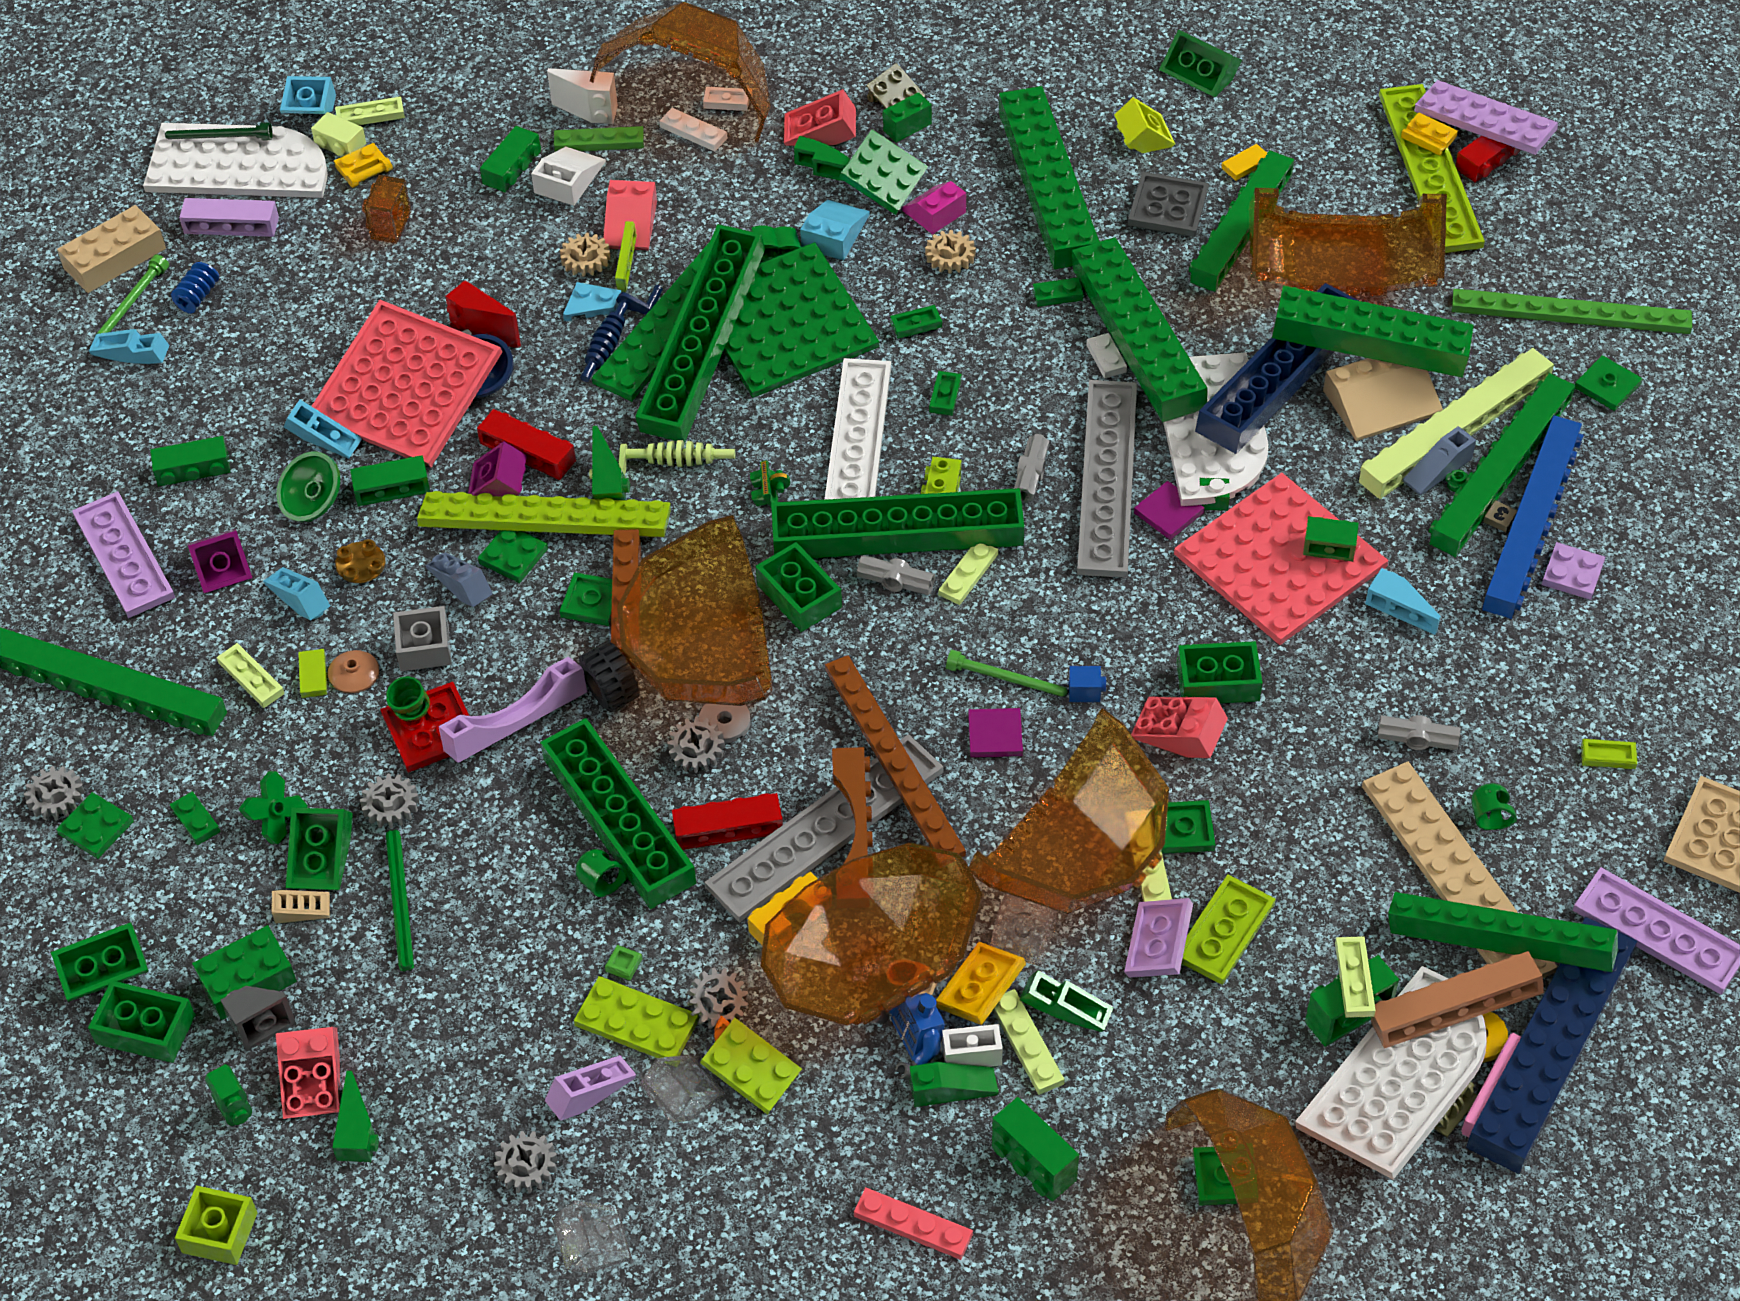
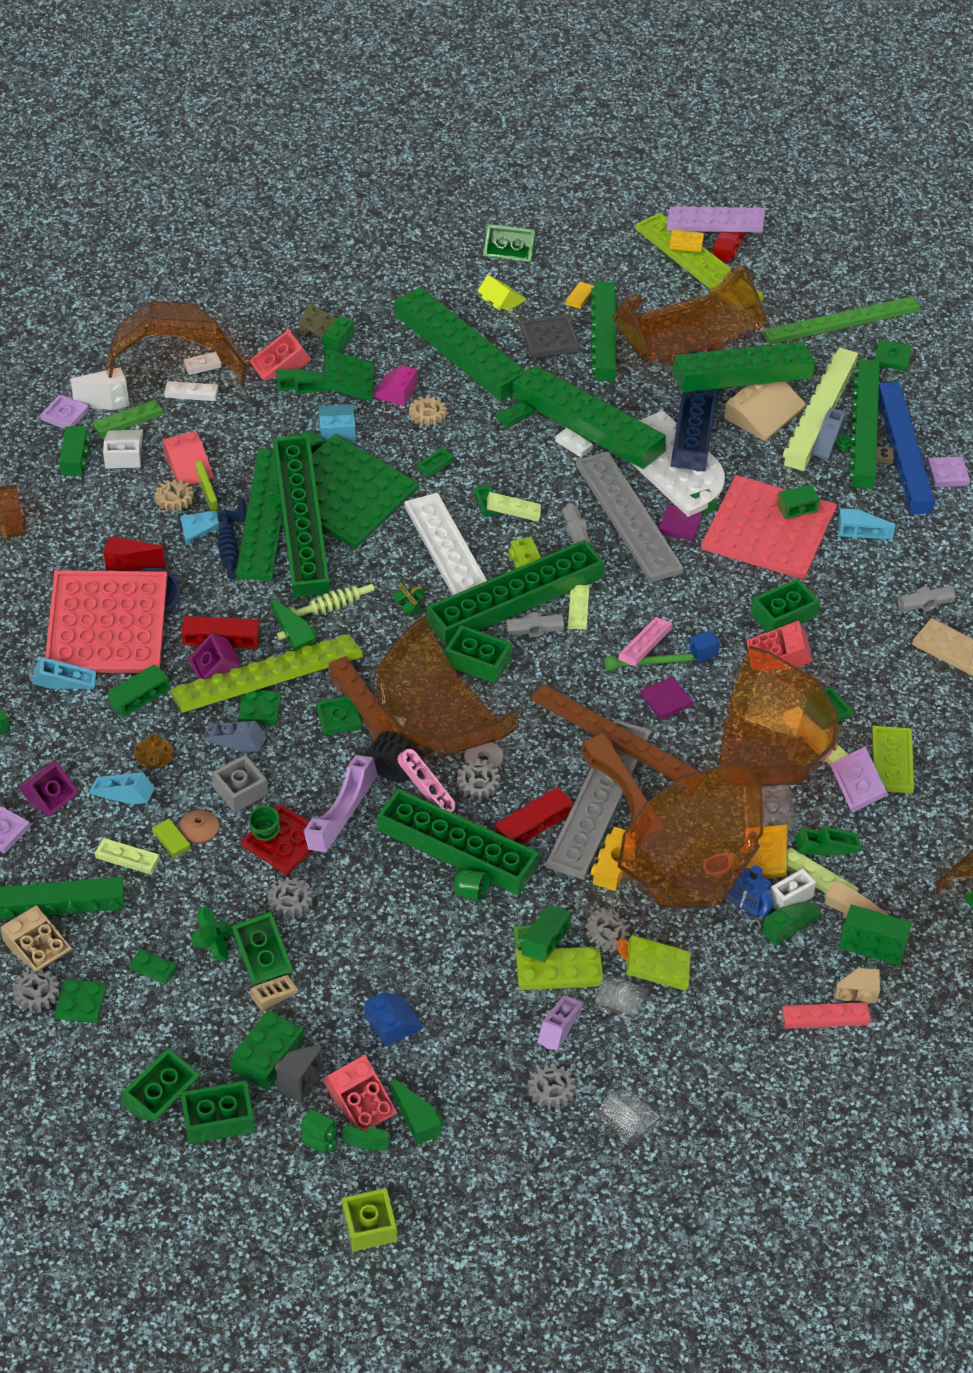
camera: 30 degrees left, 5 degrees down
(87, 732) = (34, 939): none -> tan slope
(283, 1128) = (372, 1139): none -> green slope
(308, 486) = (73, 714): green dish -> none
(399, 901) = (339, 957): green axle -> none
(406, 994) = (391, 1017): none -> blue slope
(532, 107) = (64, 412): none -> lavender plate
(627, 722) = (429, 779): none -> bright pink beam
(641, 970) = (546, 933): none -> green brick
(971, 413) = (513, 506): none -> yellowish green plate
(977, 1205) = (859, 986): none -> tan slope
(1013, 649) = (645, 641): none -> bright pink plate
(1040, 1097) = (842, 896): none -> tan slope

